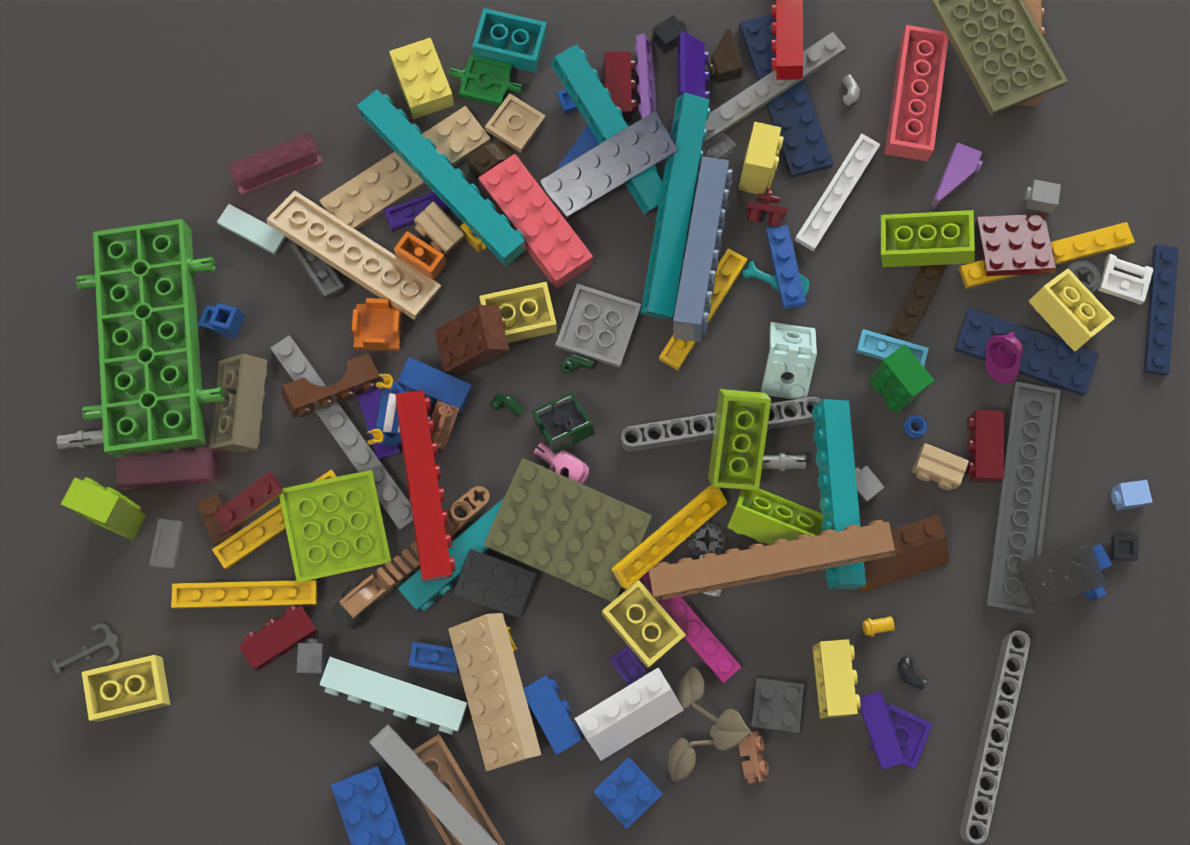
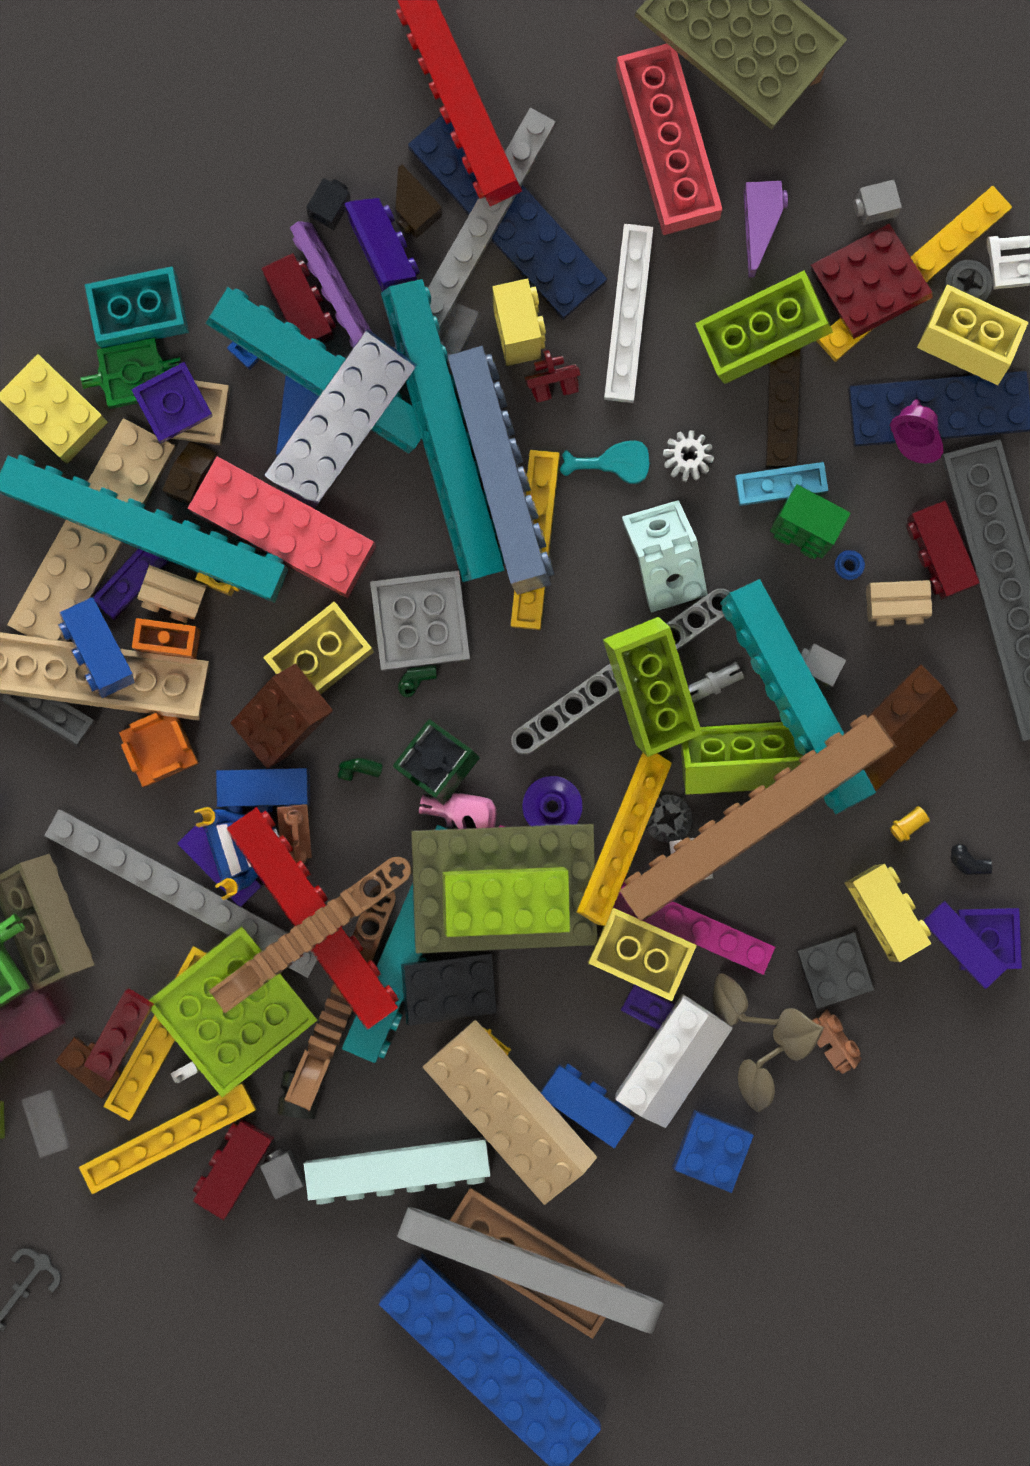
camera: 20 degrees left, 10 degrees up
(125, 688) = (90, 1310): light yellow brick -> none
(280, 554) = (184, 1072): none -> white tile
(305, 397) = (118, 879): reddish brown arch -> none
(369, 238) = (95, 648): none -> blue brick
(420, 489) = (303, 937): none -> medium nougat piece
(433, 658) = (420, 1105): blue plate -> none
(502, 108) = (172, 402): none -> dark purple plate
(564, 536) = (506, 901): none -> lime brick
(630, 480) = (552, 789): none -> dark purple dish
(785, 267) = (609, 440): blue plate -> none
(837, 294) = (689, 466): none -> white gear
(853, 90) = (589, 171): light grey arm -> none

